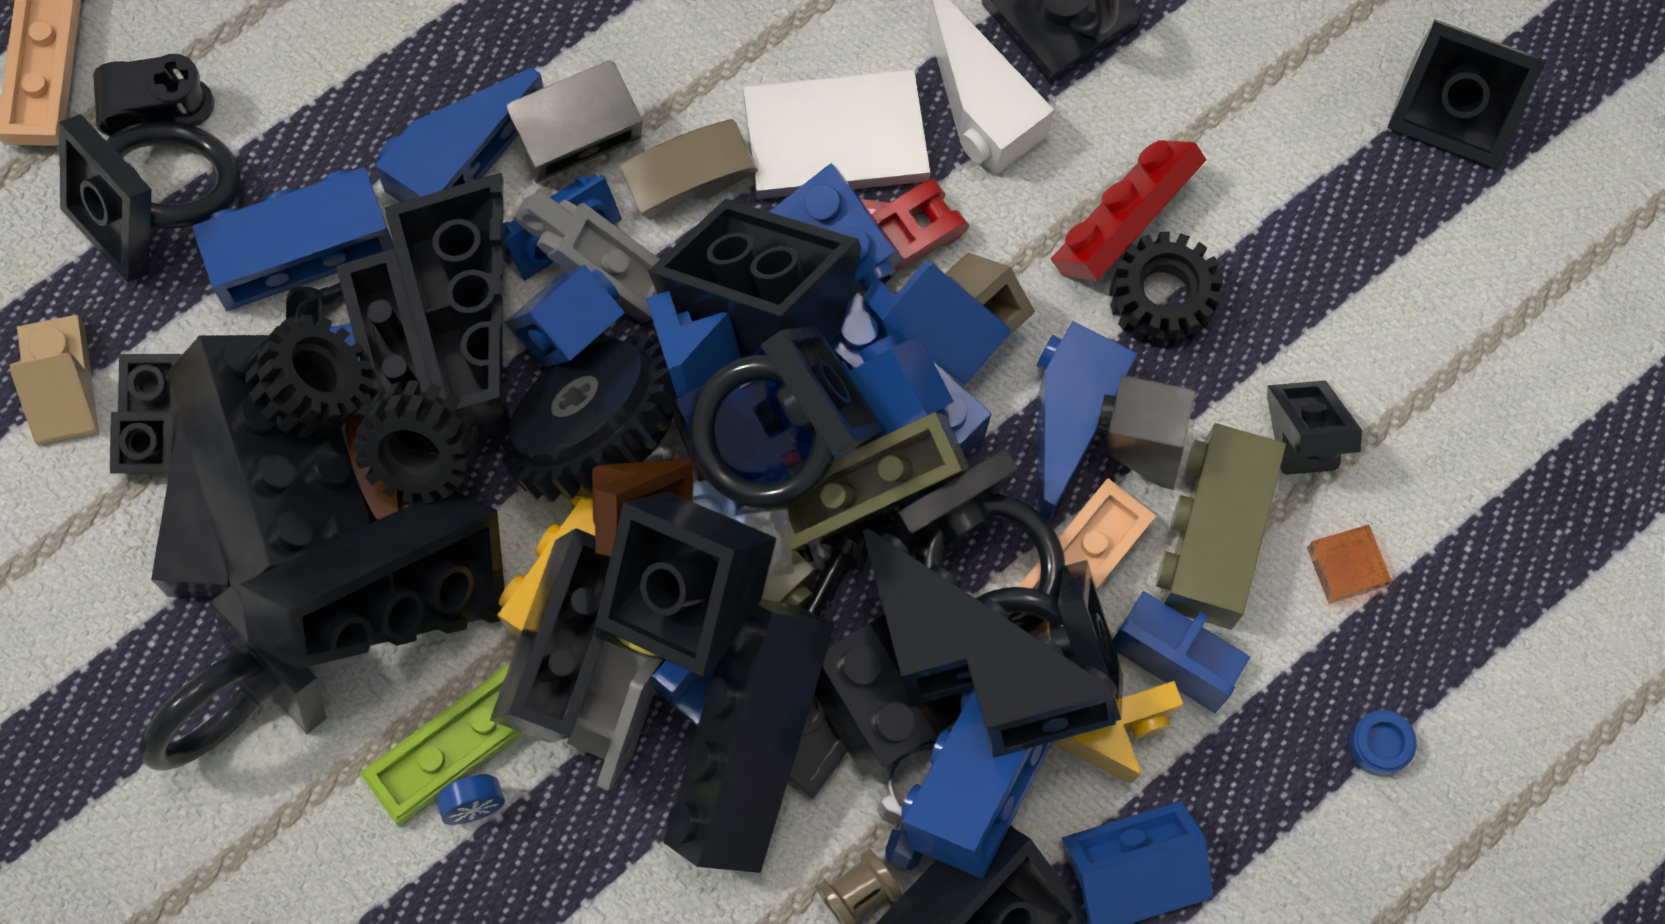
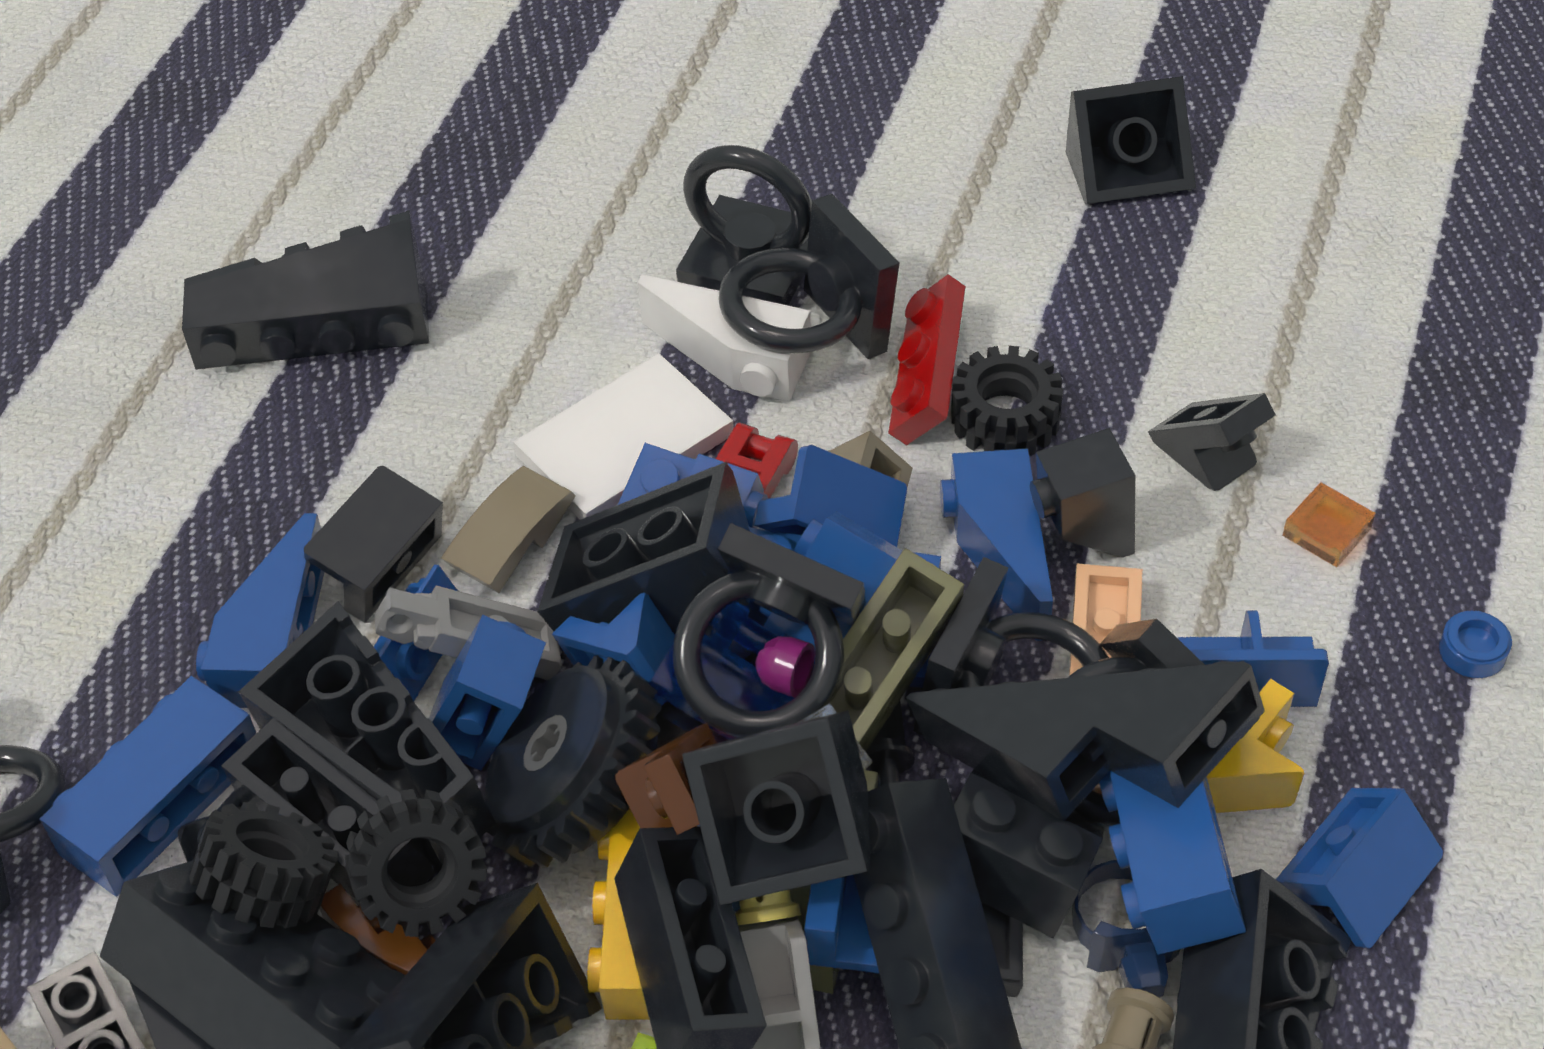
camera: 25 degrees left, 20 degrees down
(784, 449) = (786, 664): none -> magenta hinge
(1103, 96) = (844, 275): none -> black tile
(1220, 525) = (1203, 546): olive brick -> none

